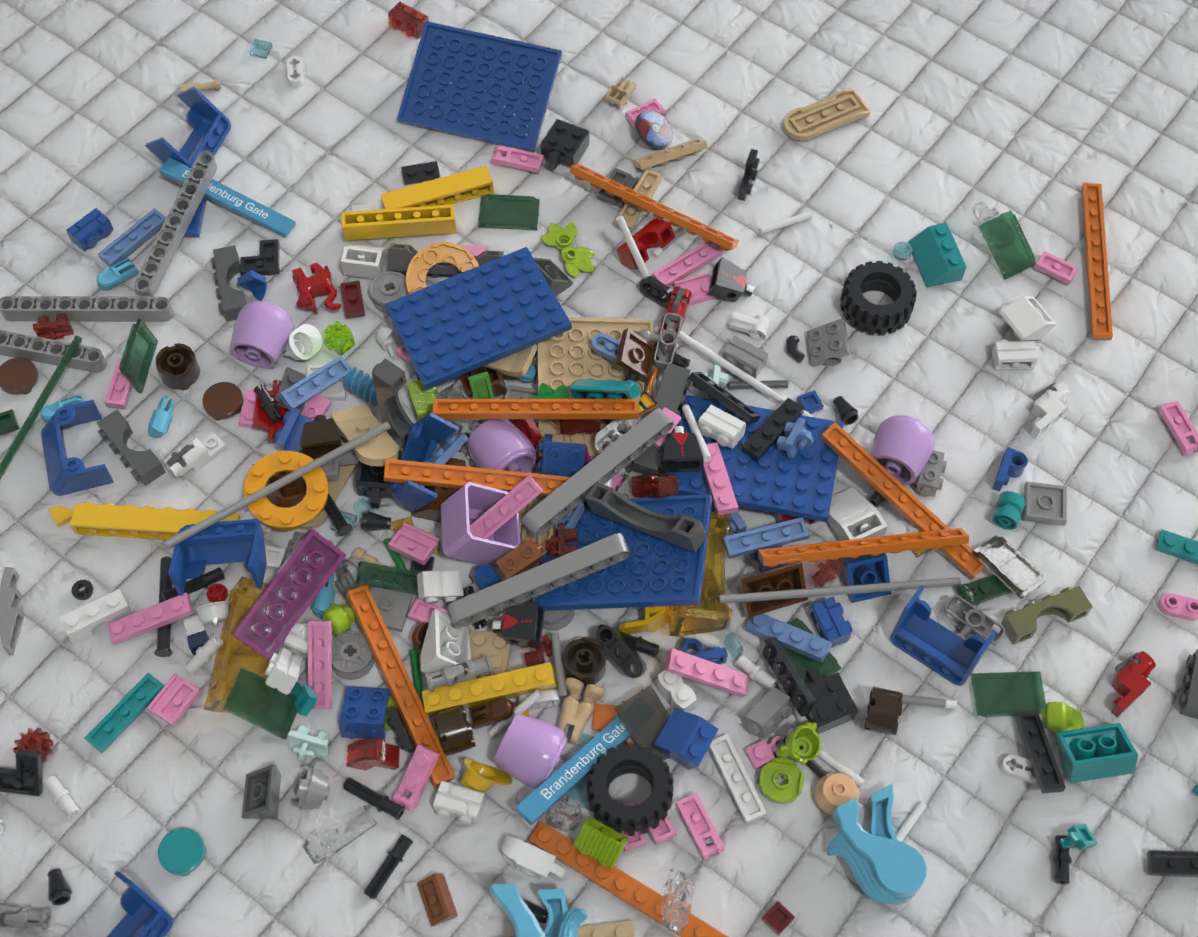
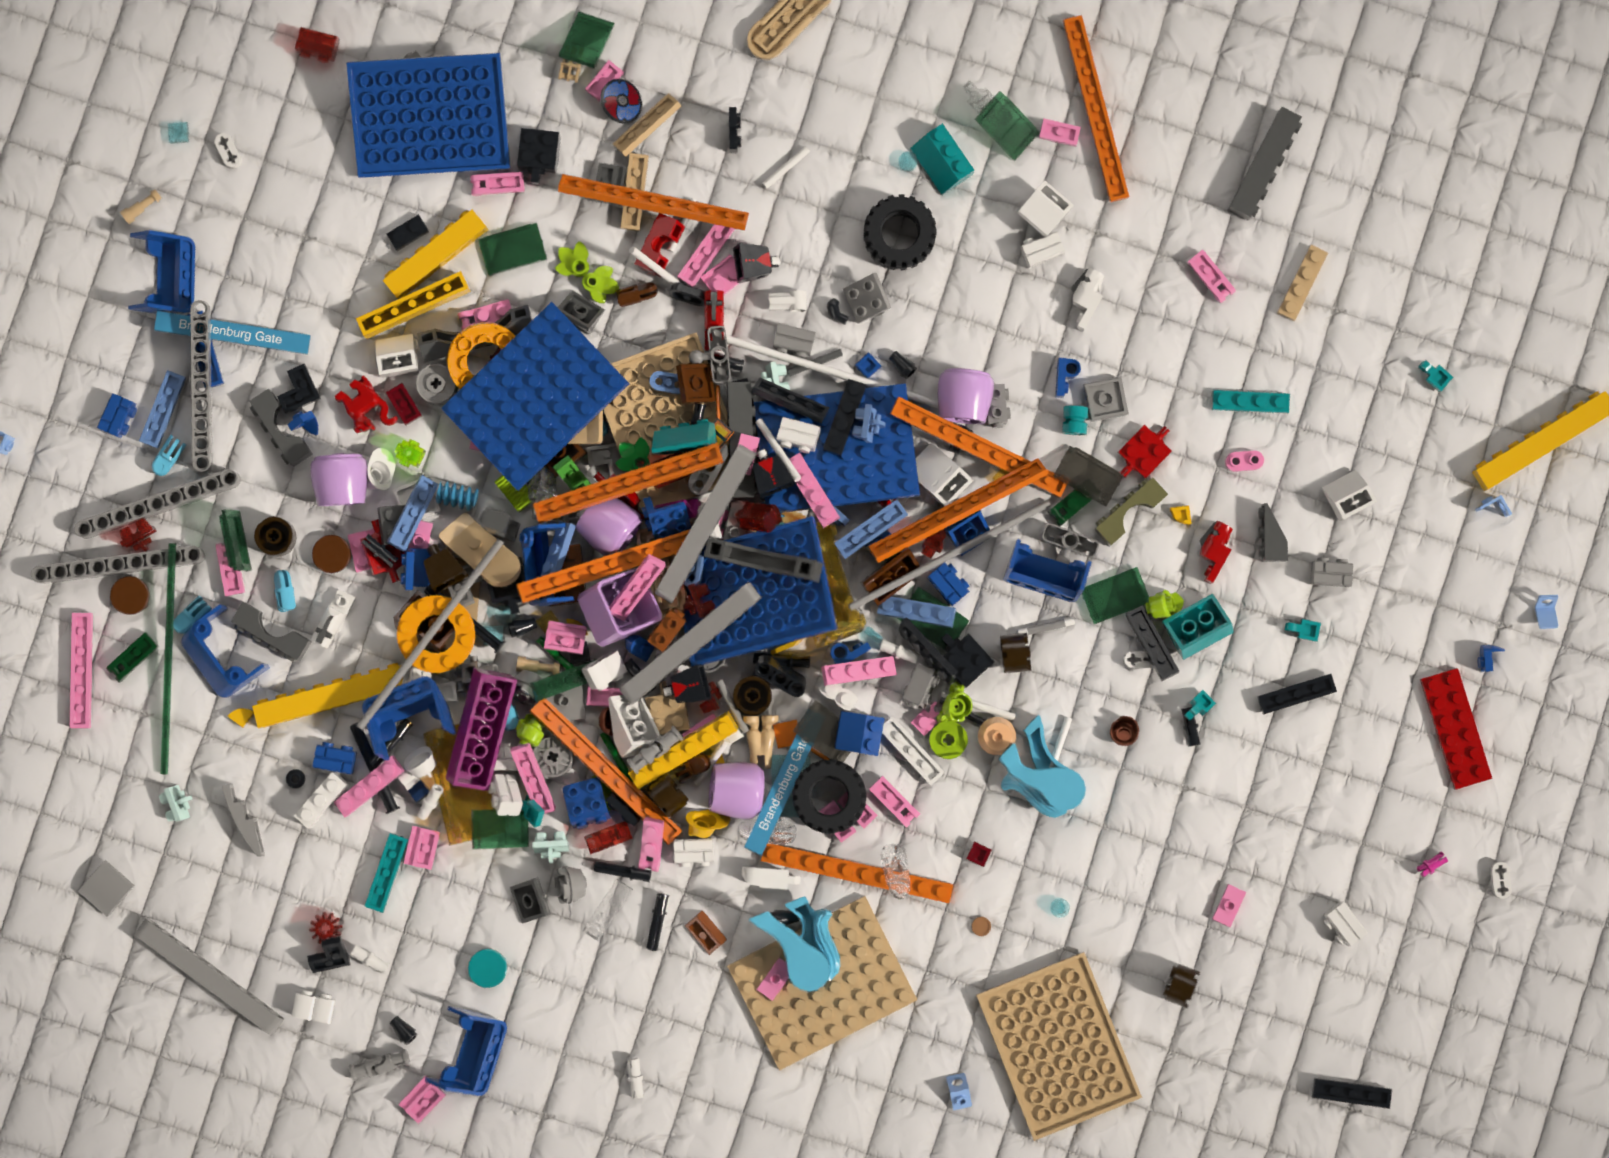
camera: 20 degrees left, 25 degrees up
(132, 583) = (335, 759): none -> blue brick
(217, 593) = (414, 741): red plate -> none
(384, 337) = (451, 435): white piece -> none
(600, 842) = (820, 846): lime brick -> none
(603, 276) = (636, 293): none -> reddish brown arm
(641, 77) = (586, 40): none -> clear green piece
(985, 836) = (1124, 731): none -> copper hair
(1074, 564) = (1144, 451): none -> red plate
(1100, 637) = (1181, 514): none -> yellow tile

